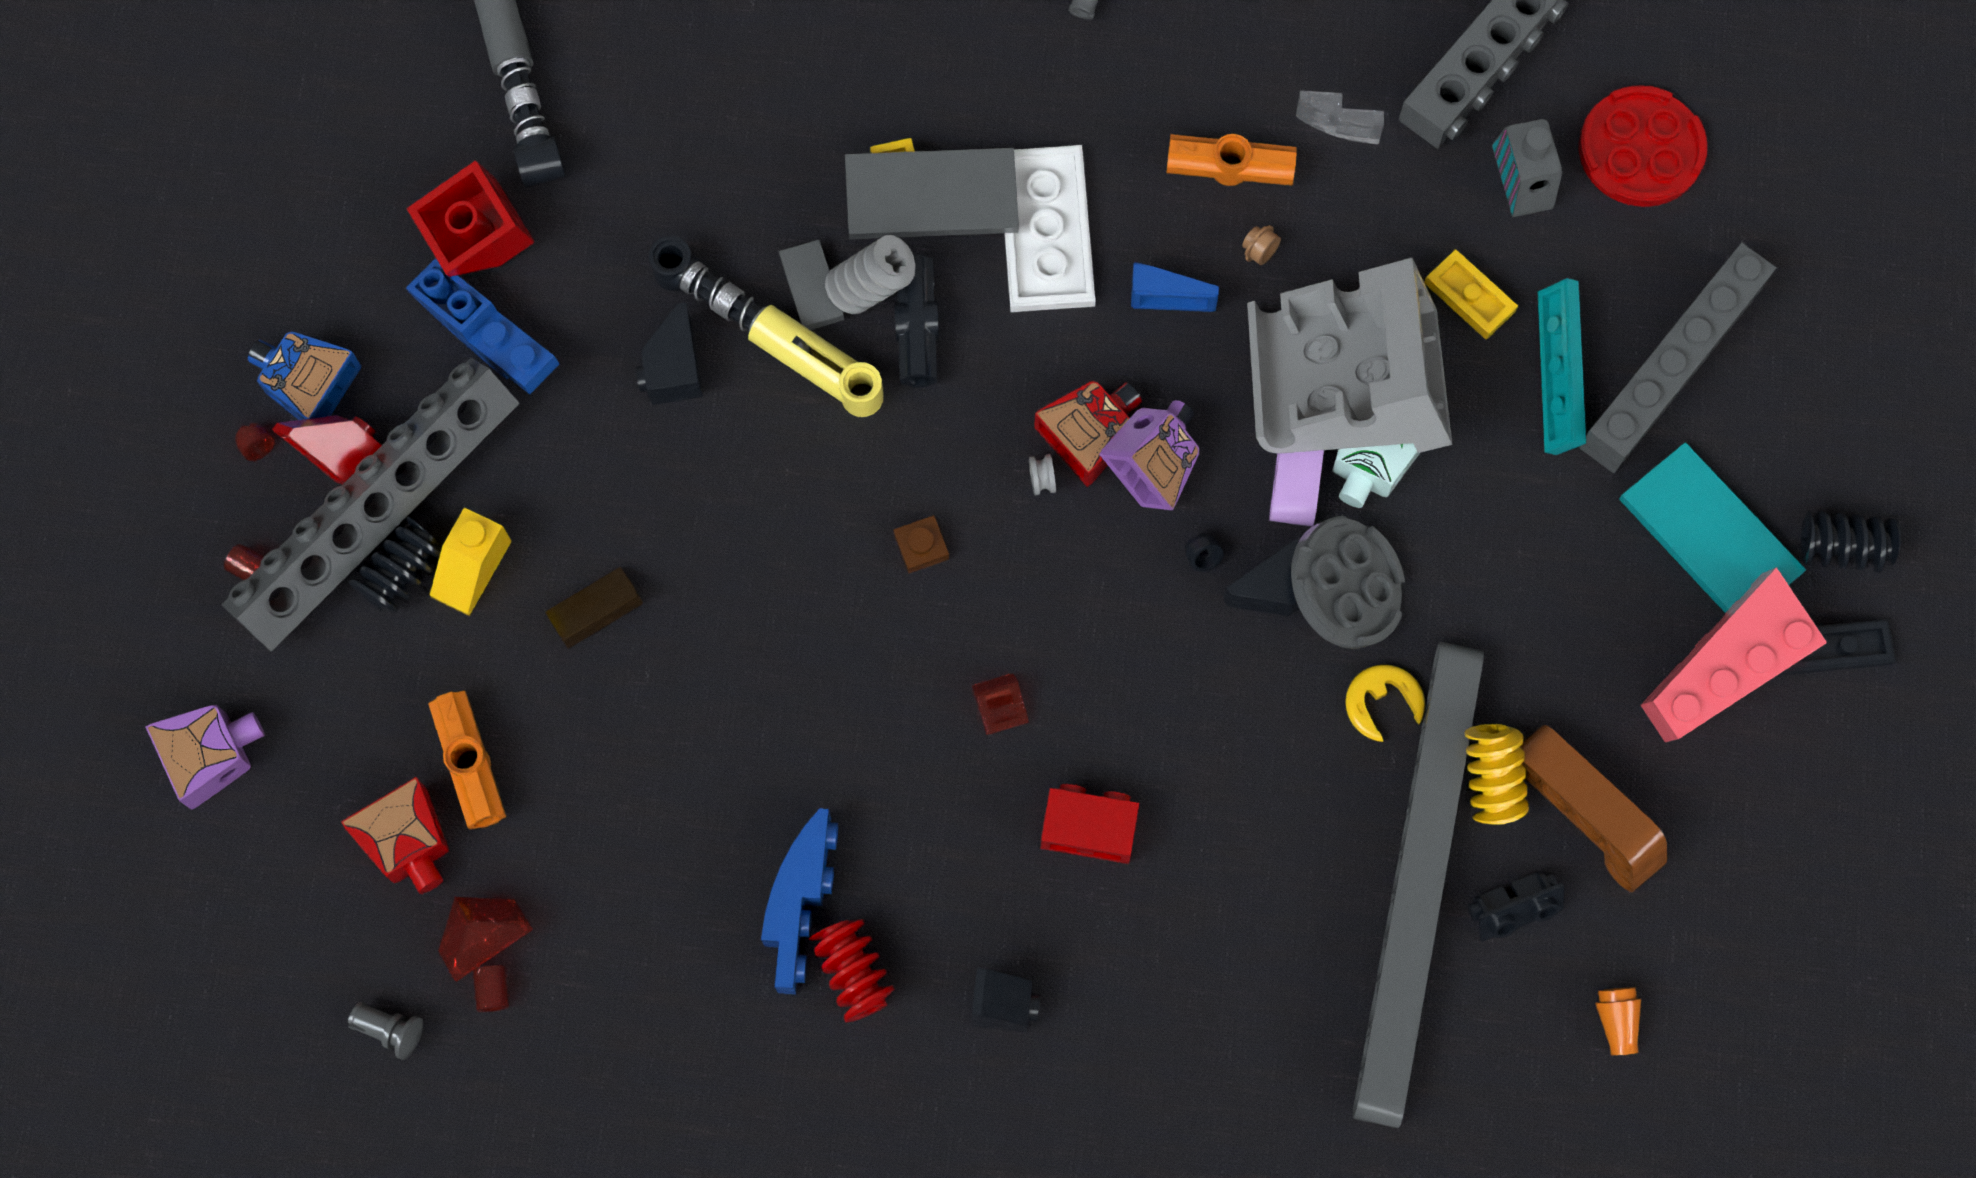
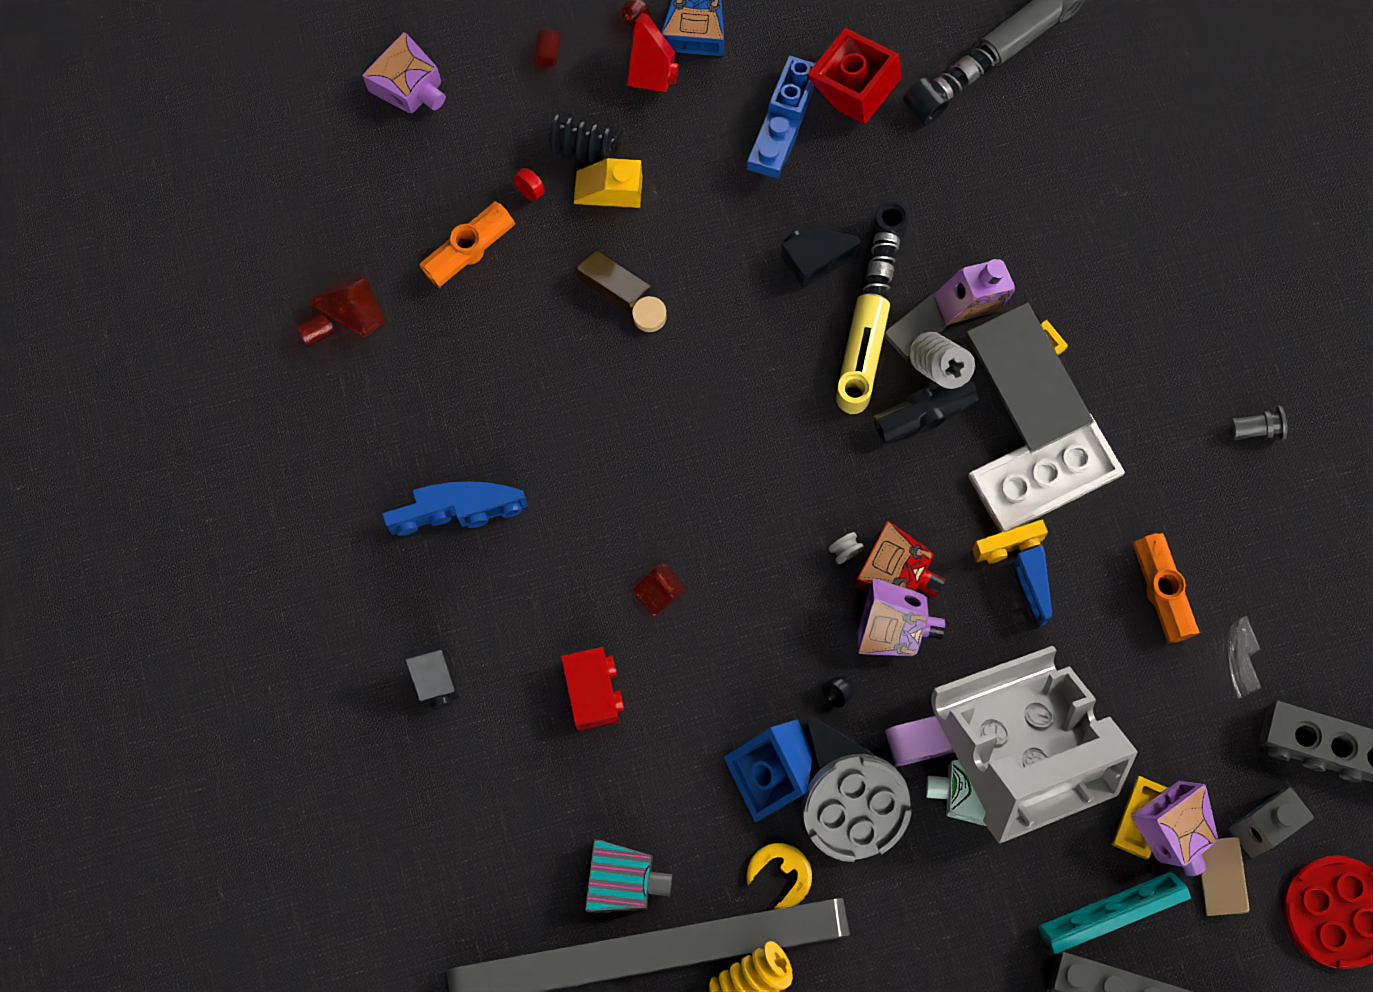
camera: 70 degrees right, 0 degrees up
(368, 526) = (574, 97): dark grey brick -> none
(389, 1029) = (262, 281): dark grey pin -> none
(402, 835) = (398, 226): torso -> none
(422, 656) = (528, 184): none -> red tile
(656, 581) = (649, 314): none -> tan tile
(809, 188) = (985, 289): none -> medium lavender torso
(852, 969) = (419, 563): red piece -> none
(921, 544) = (756, 484): reddish brown plate -> none
(1113, 280) = (997, 546): none -> yellow plate
(1261, 244) = (1107, 638): medium nougat plate -> none
(1267, 658) = (772, 768): none -> blue slope
(1326, 875) = (622, 879): none -> torso
(1497, 258) = (1179, 826): none -> medium lavender torso
(1563, 242) = (1224, 879): none -> tan slope

